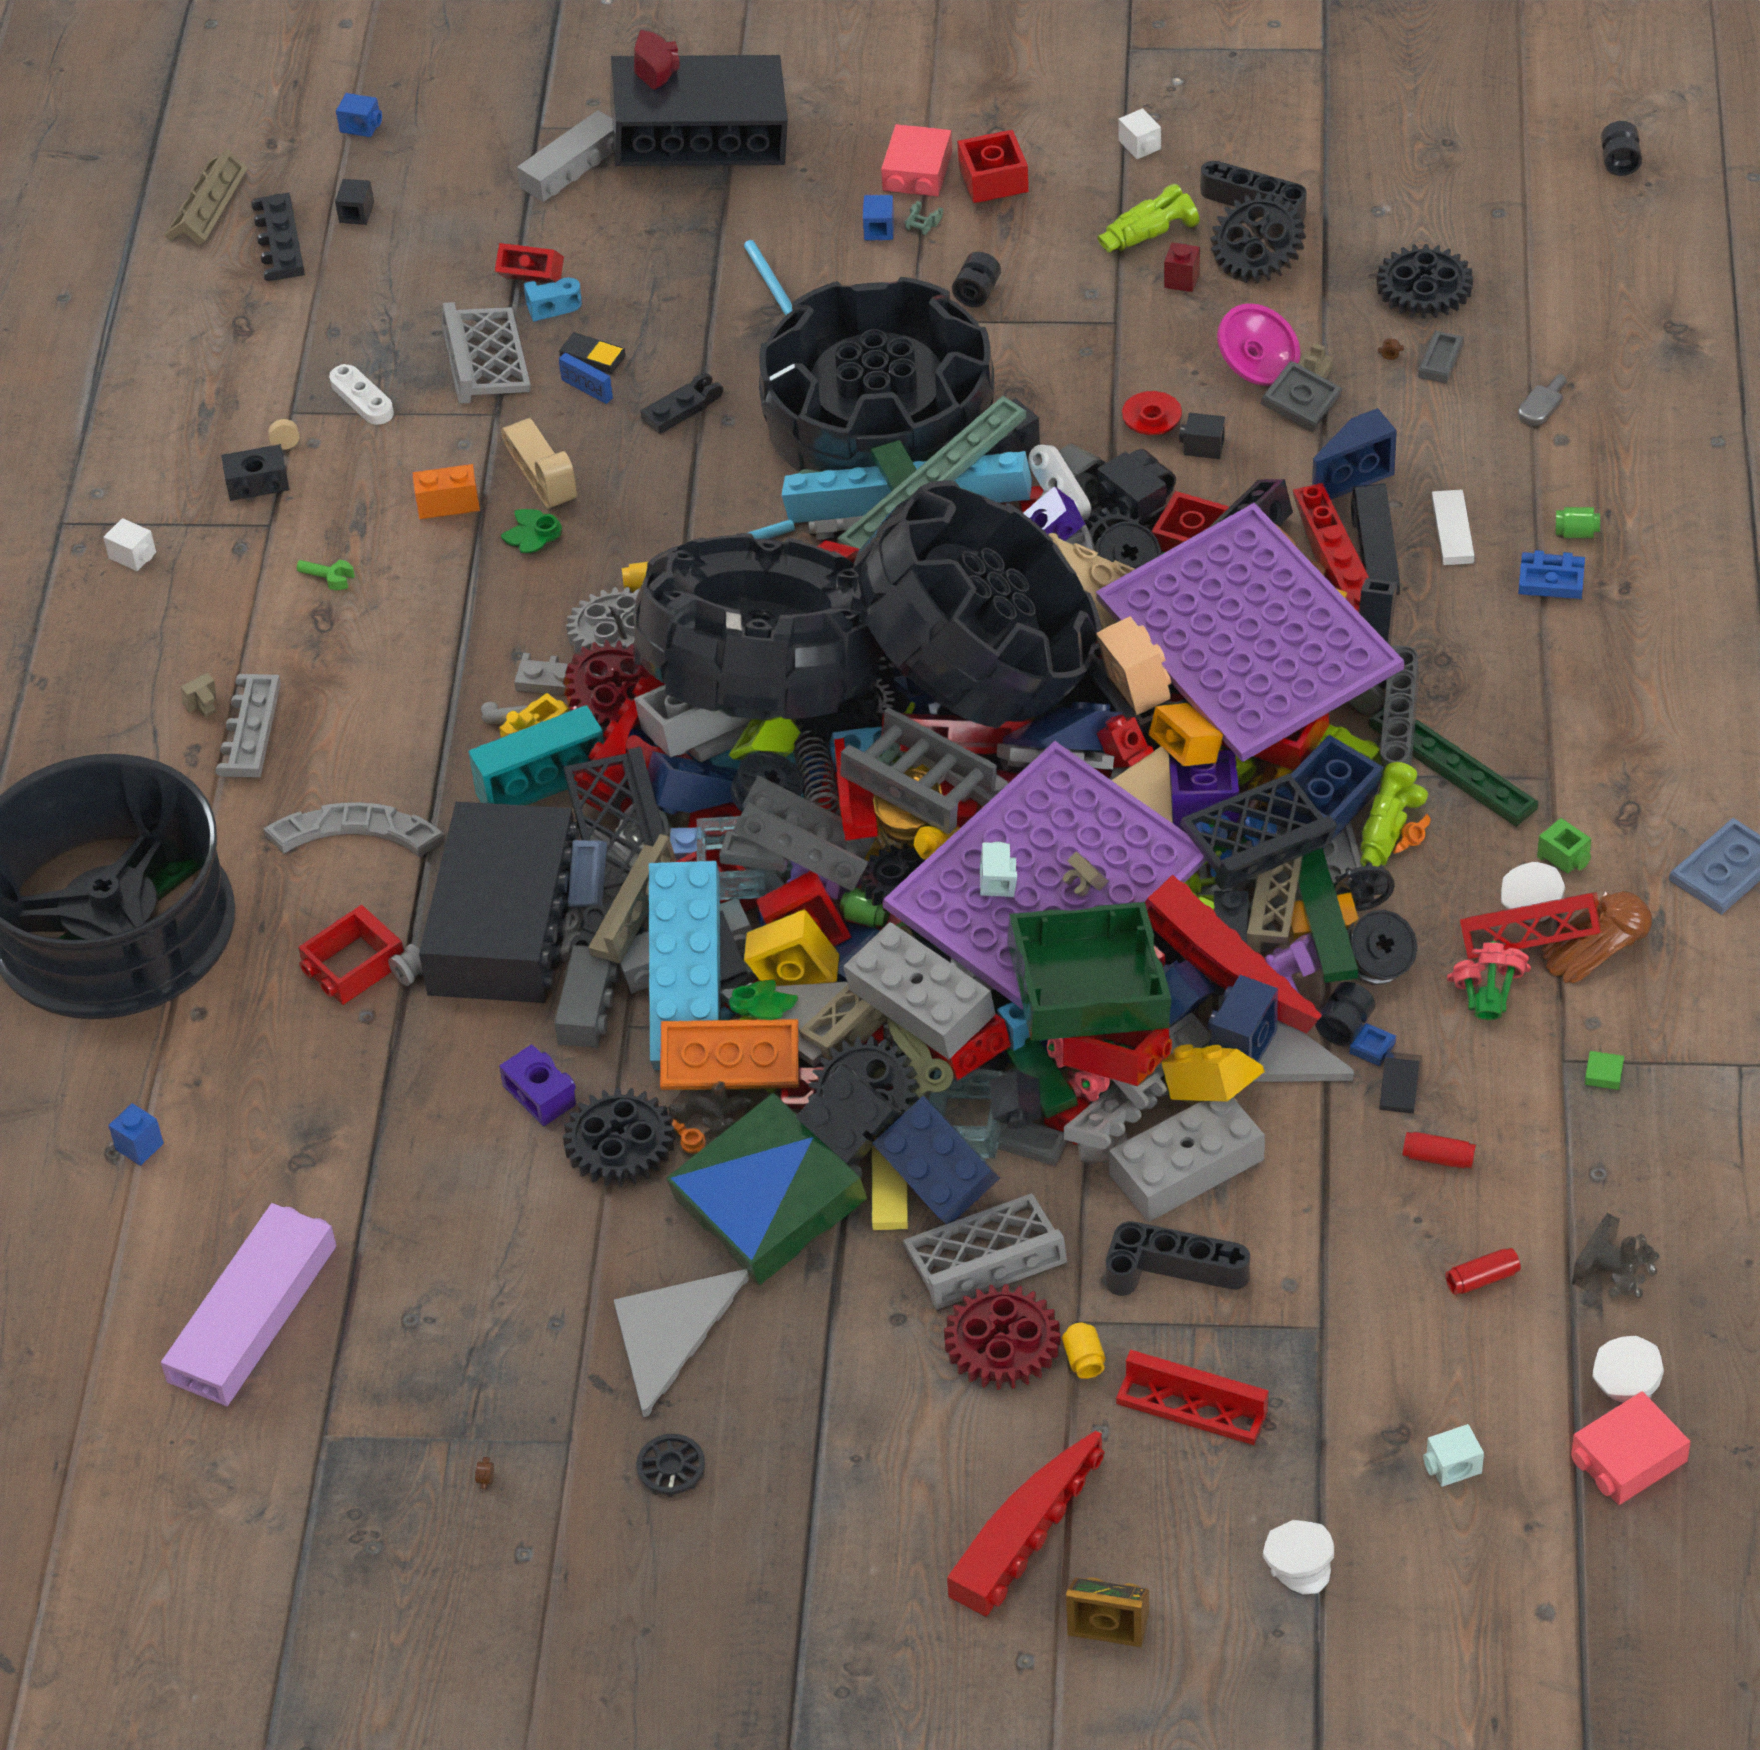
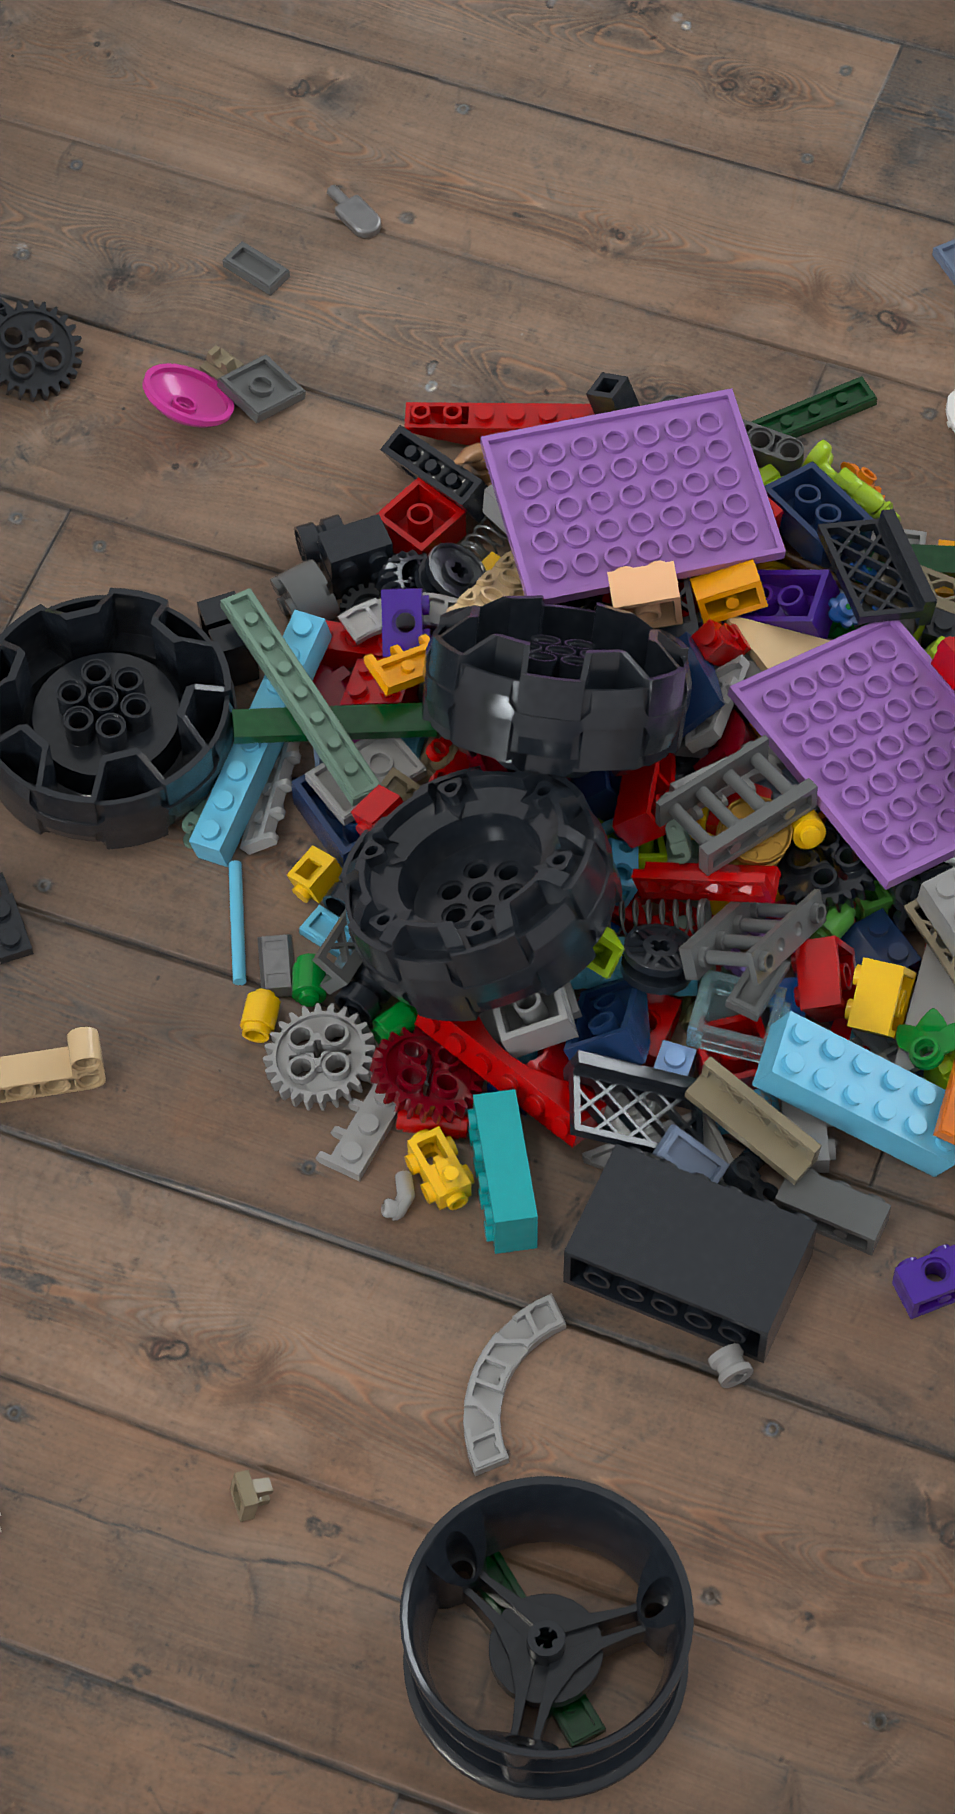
camera: 75 degrees left, 10 degrees up
(136, 1134) = (881, 1685): blue brick -> none
(251, 727) = (315, 1451): light grey hinge -> none
(332, 574) = (102, 1326): bright green bar -> none
(338, 936) = (688, 1384): red window -> none
(446, 491) = (42, 1174): orange brick -> none
(533, 530) = (131, 1112): green plate -> none
(997, 870) = (887, 776): light aqua brick -> none
(1055, 468) = (316, 598): white plate -> none
(1086, 872) = (908, 709): dark tan tile -> none
(1152, 412) = (226, 503): red dish -> none
(1182, 267) = (35, 426): dark red brick -> none
(1203, 435) = (282, 479): black brick -> none
(1357, 454) = (379, 363): dark blue slope -> none
(1364, 884) = (933, 522): black wheel -> none
(1373, 522) = (486, 381): black beam -> none
(1390, 349) = (229, 301): reddish brown piece -> none
(1424, 281) = (134, 254): black gear -> none
(1452, 527) = (489, 330): white tile -> none
(1551, 575) = (592, 282): blue plate -> none
(1564, 846) = (928, 372): bright green brick -> none
(1577, 522) = (531, 236): bright green brick -> none
(1621, 148) = (57, 41): black wheel -> none

